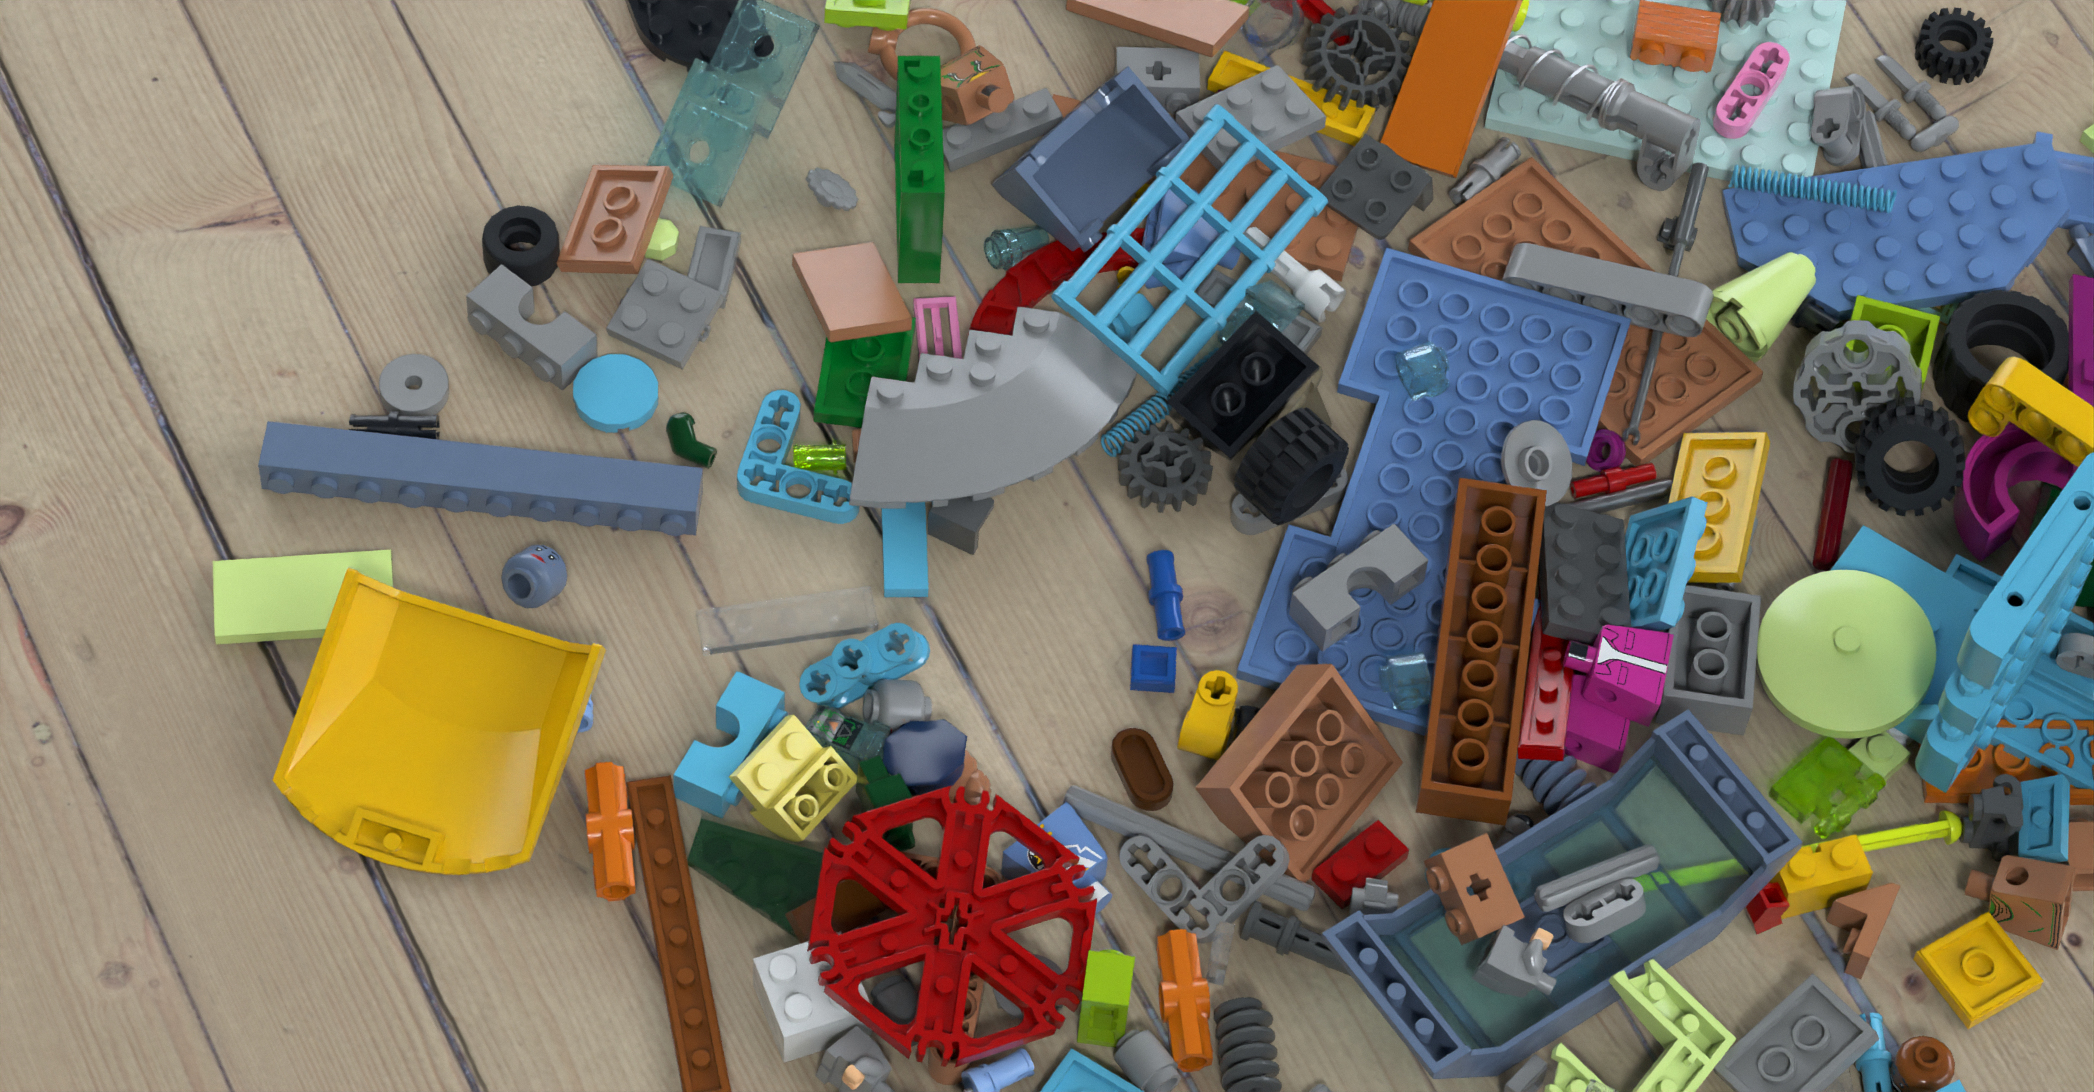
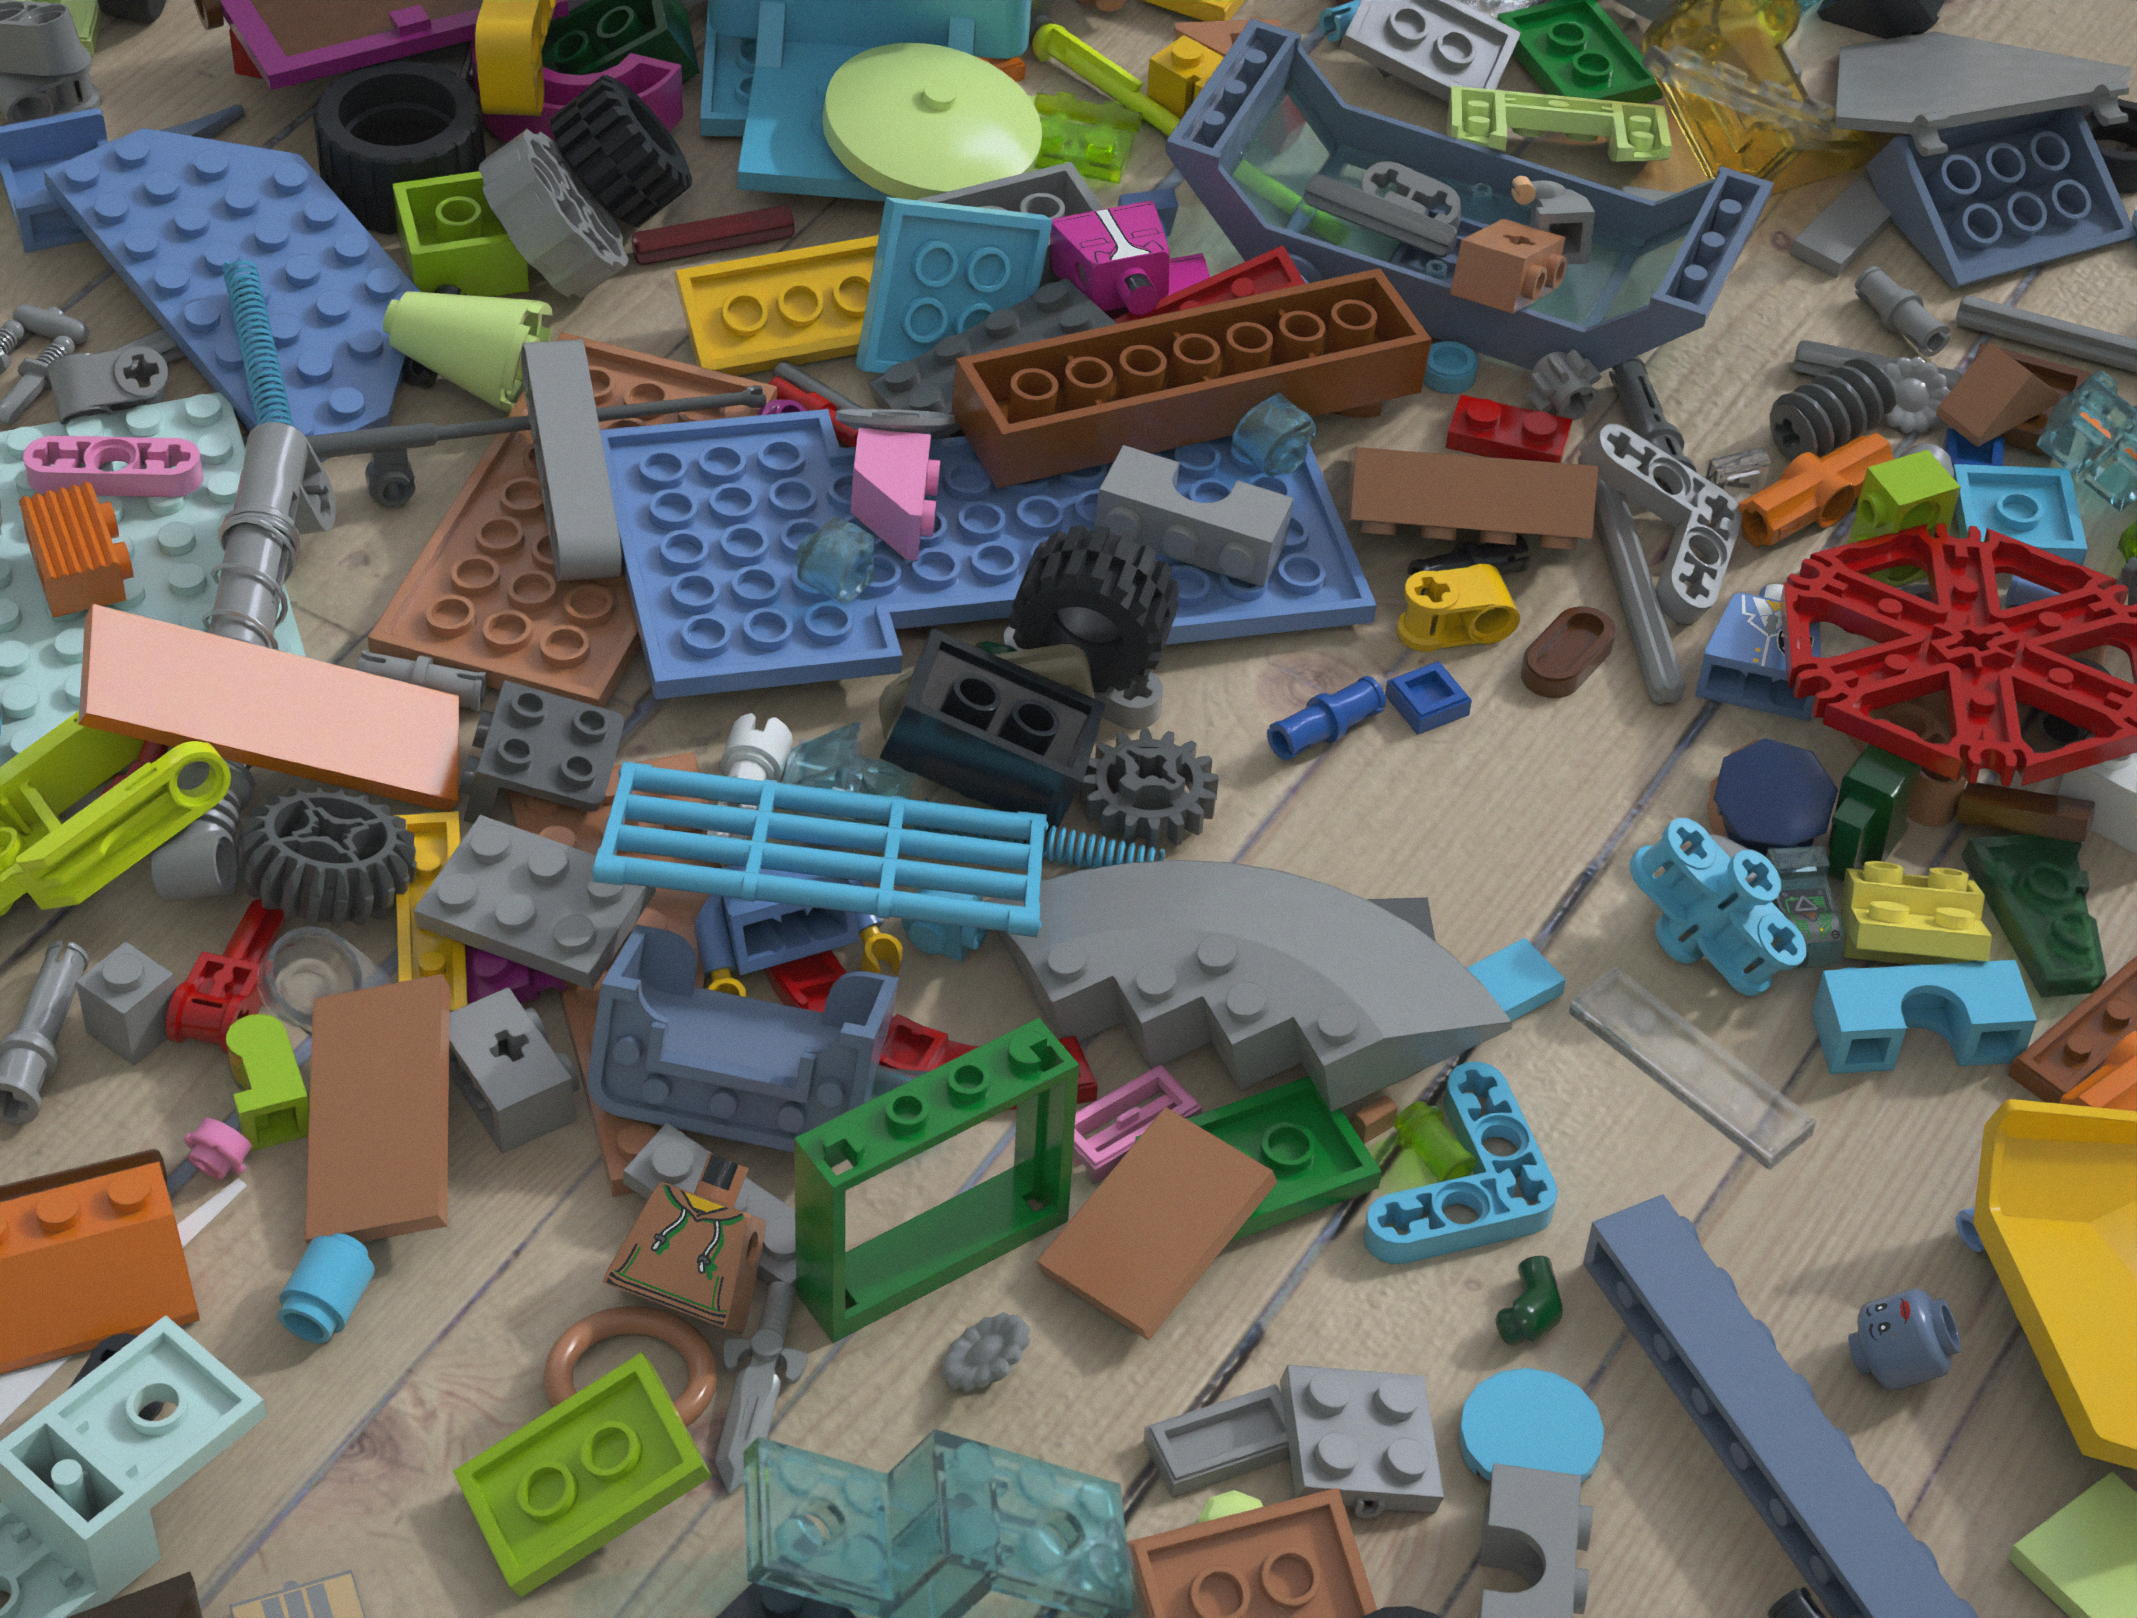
camera: 120 degrees left, 10 degrees down
(1469, 432) = (891, 485): none -> bright pink slope

